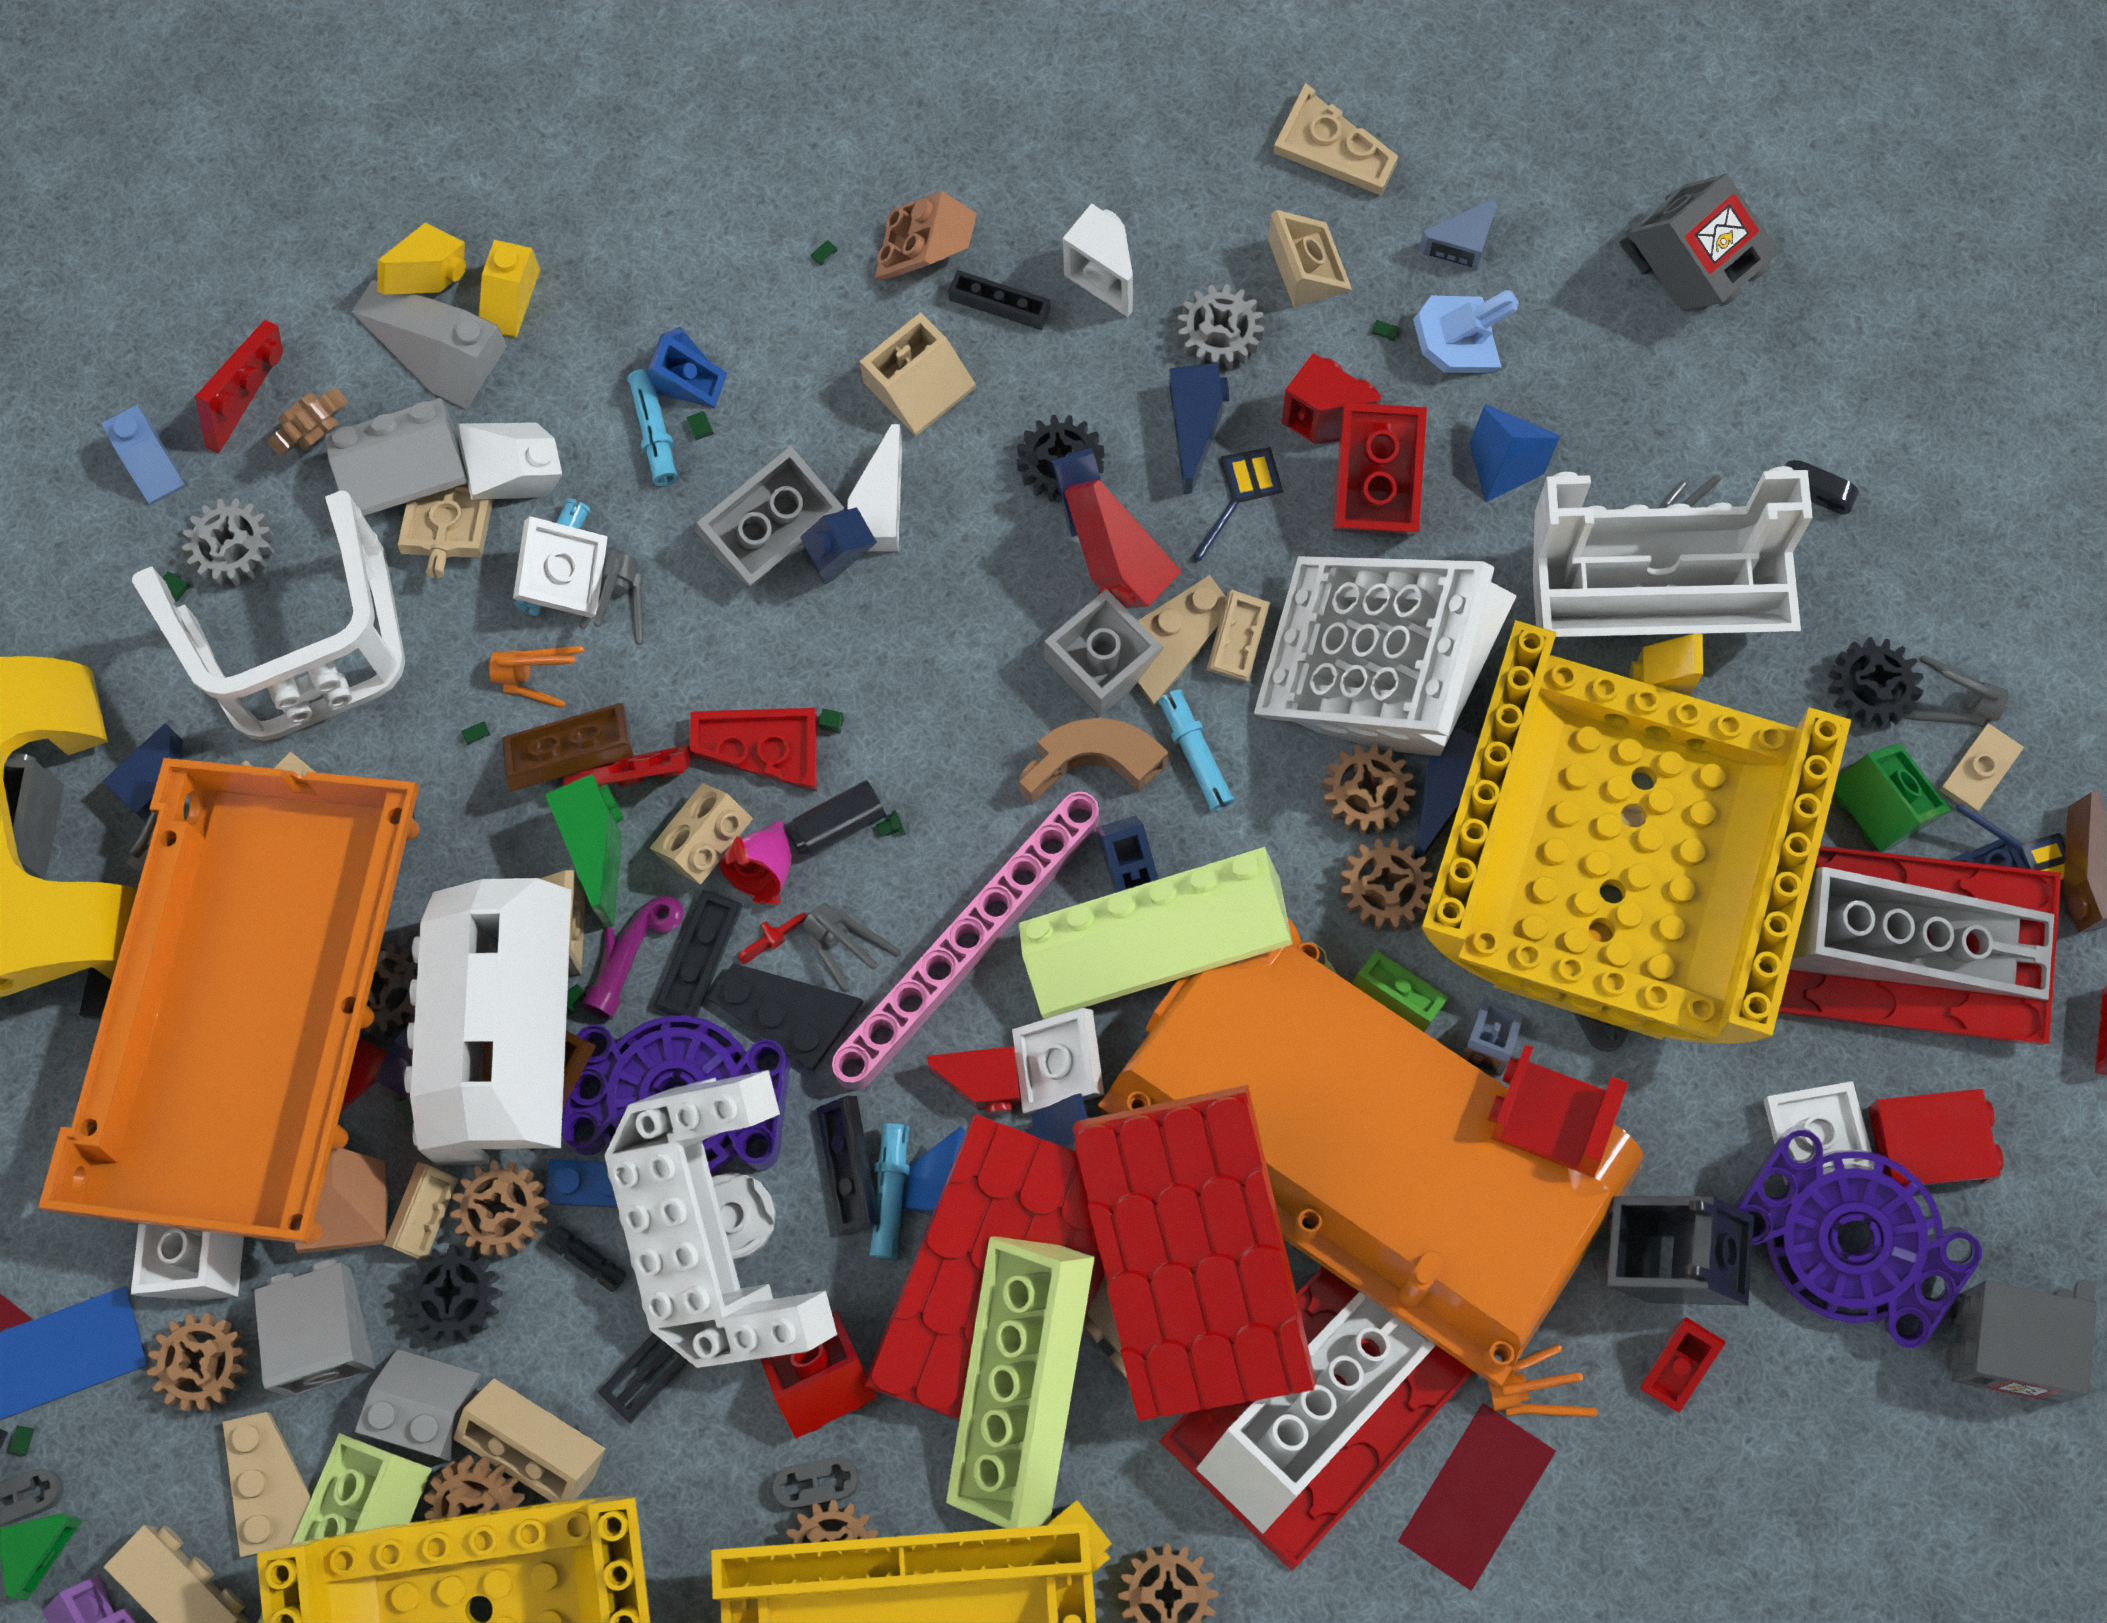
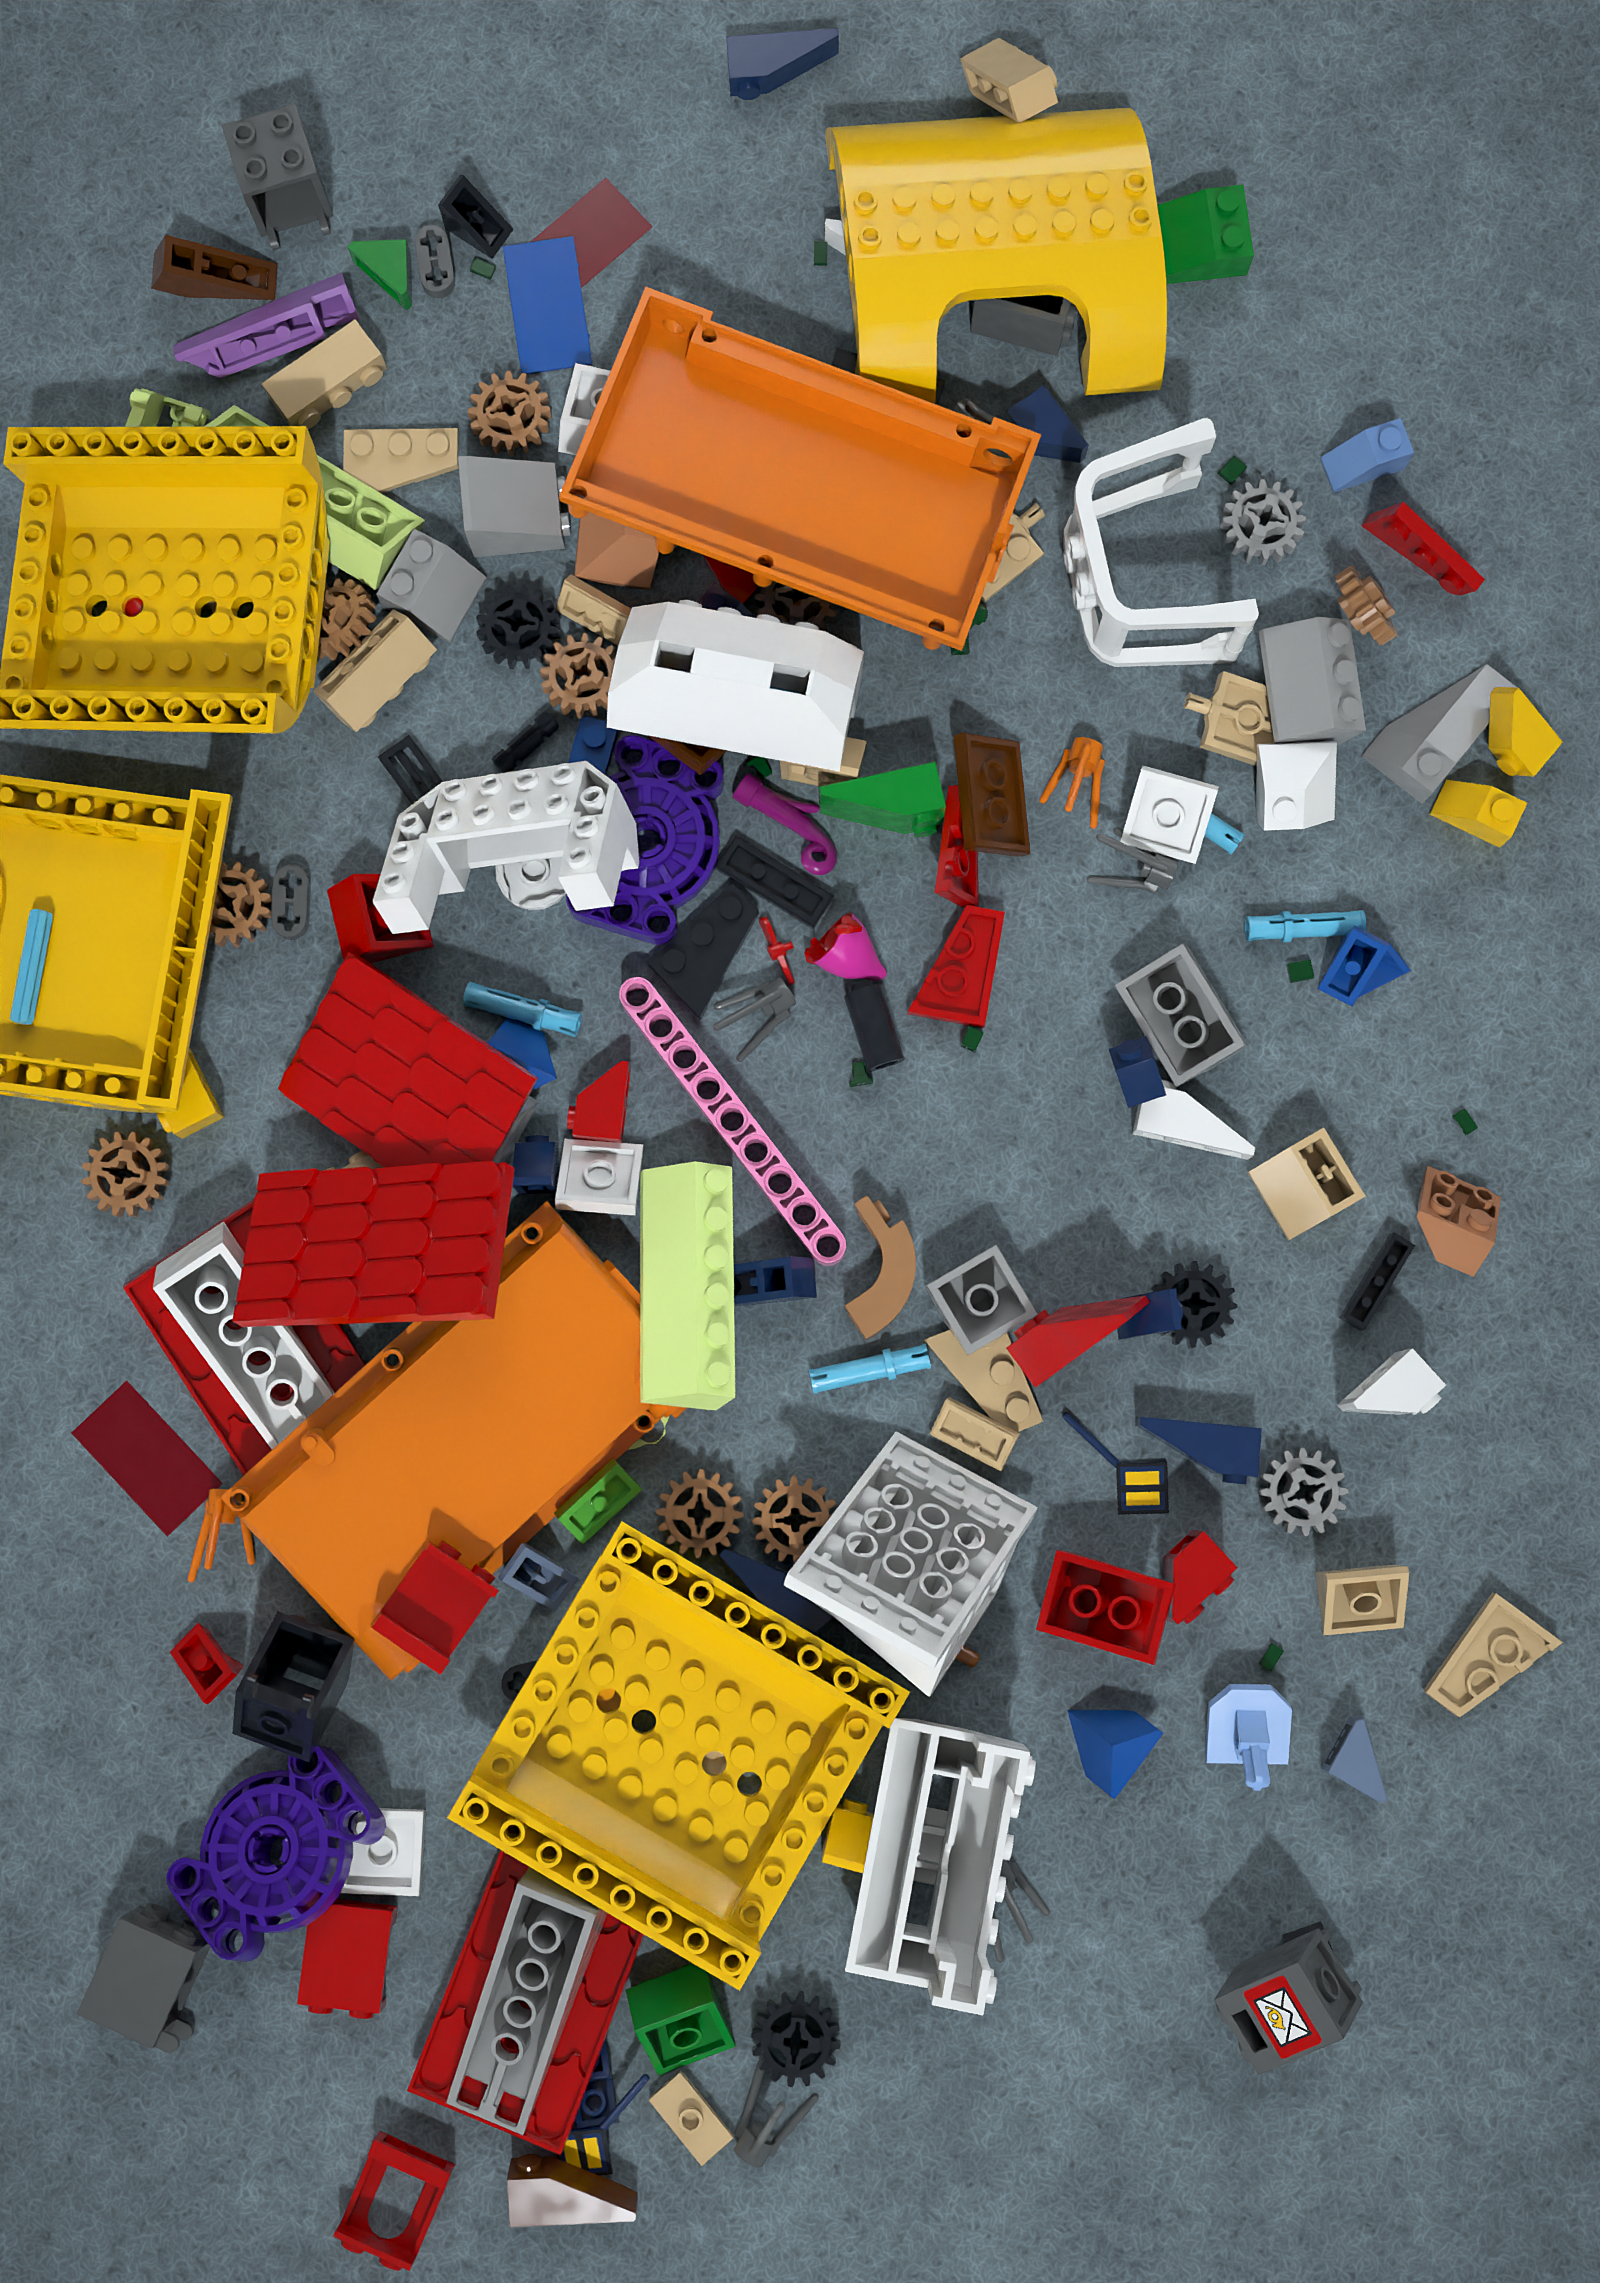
camera: 100 degrees right, 10 degrees up
(475, 732) = (1030, 719): dark green piece -> none
(701, 833) = (882, 900): tan brick -> none
(848, 1165) = (552, 977): black tile -> none
(1019, 1382) = (319, 1081): yellowish green slope -> none
(1828, 489) = (1011, 2045): black beam -> none

